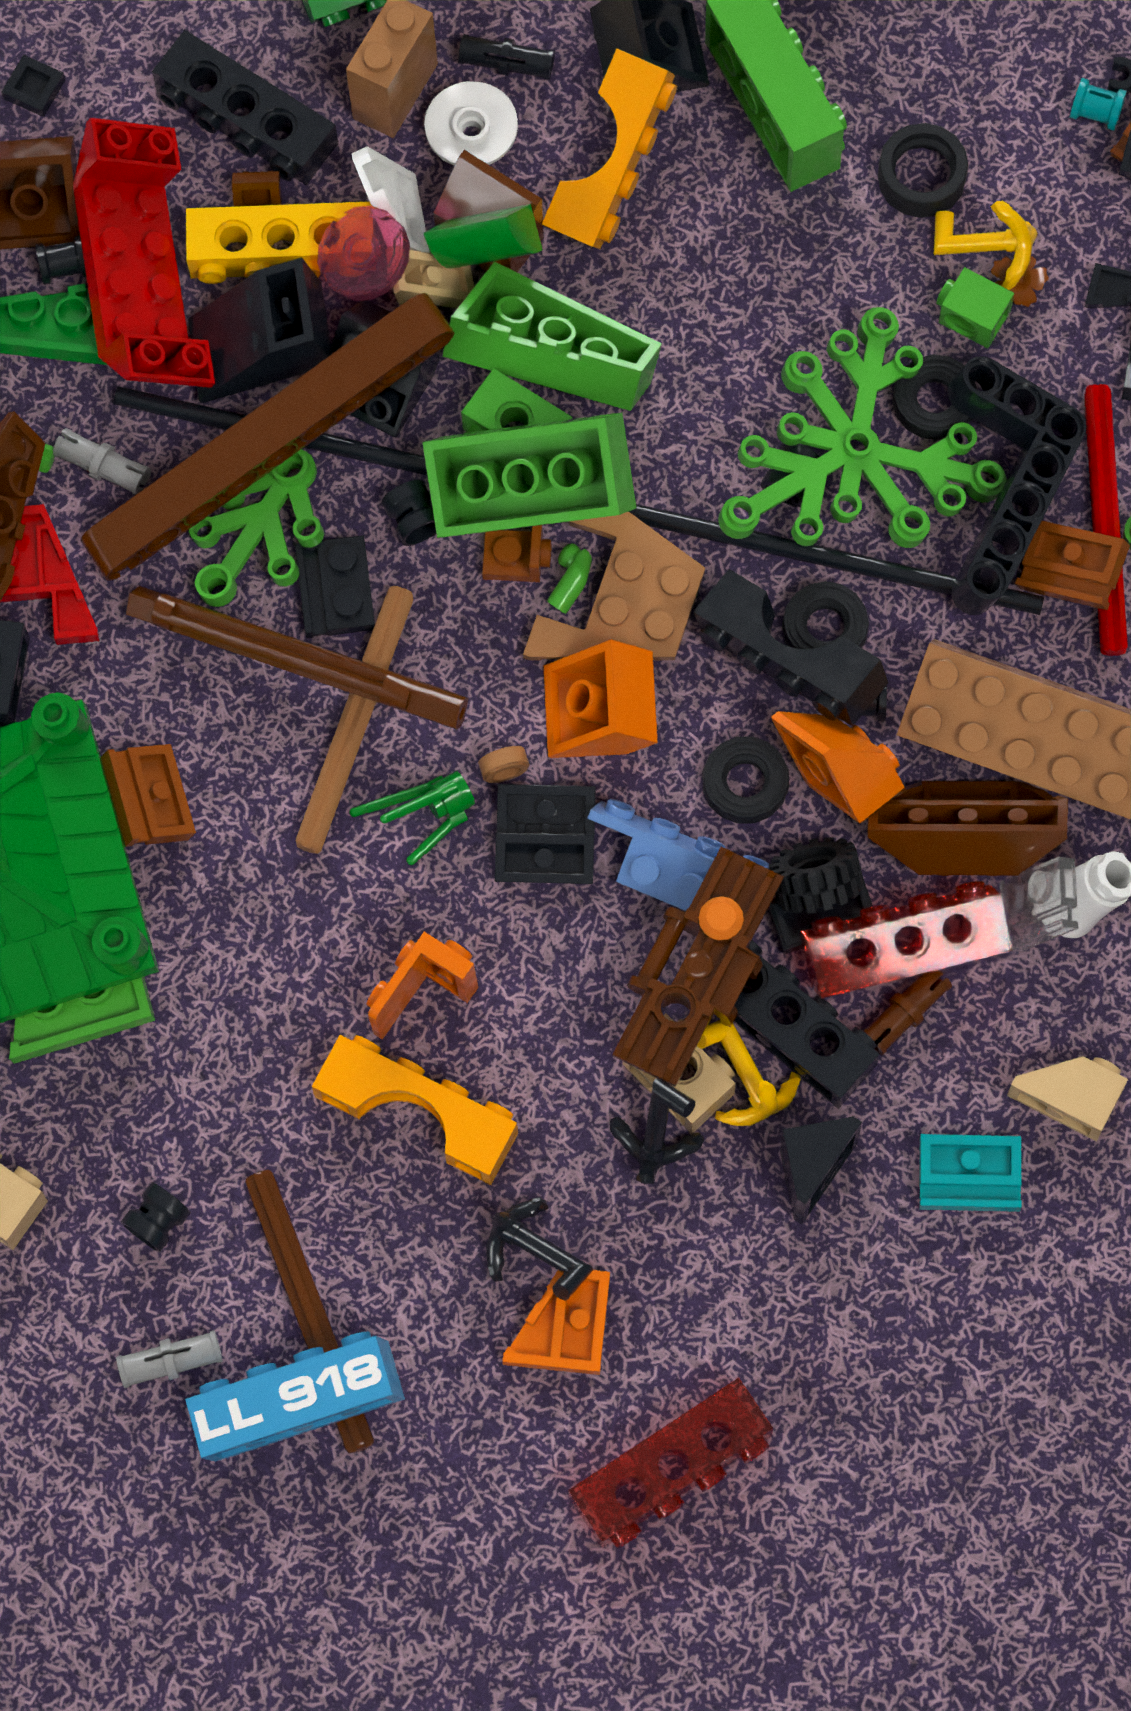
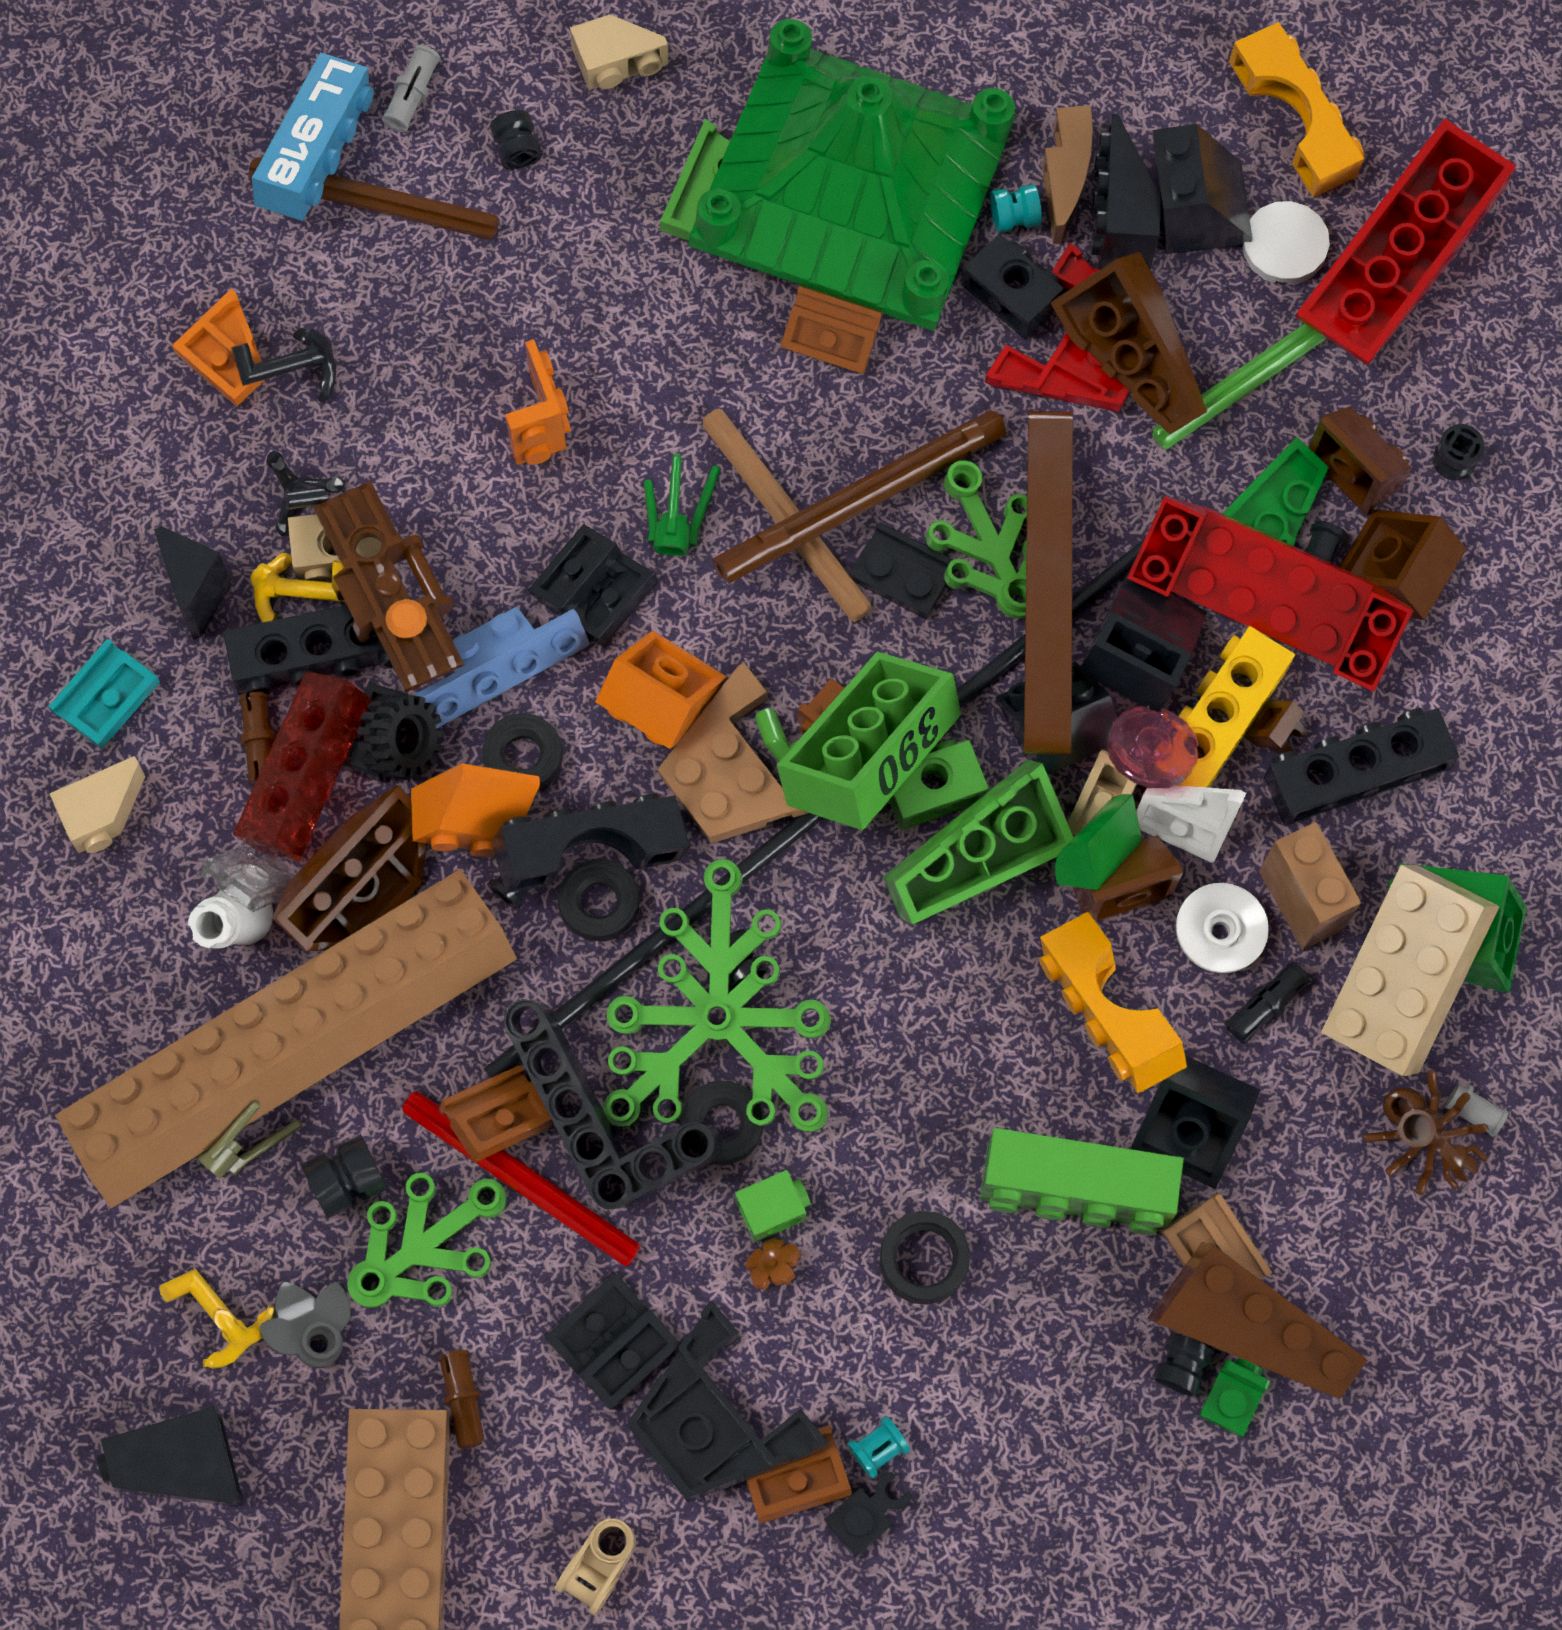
camera: 120 degrees right, 0 degrees up
(33, 85) = (1497, 629): black tile -> none
(101, 461) = (1129, 472): light grey pin -> none
(360, 1079) = (409, 378): light orange arch -> none
(412, 512) = (921, 653): black wheel -> none
(503, 764) = (666, 587): medium nougat tile -> none
(728, 1409) = (74, 412): clear red brick -> none
(1016, 239) = (819, 1262): yellow piece -> none

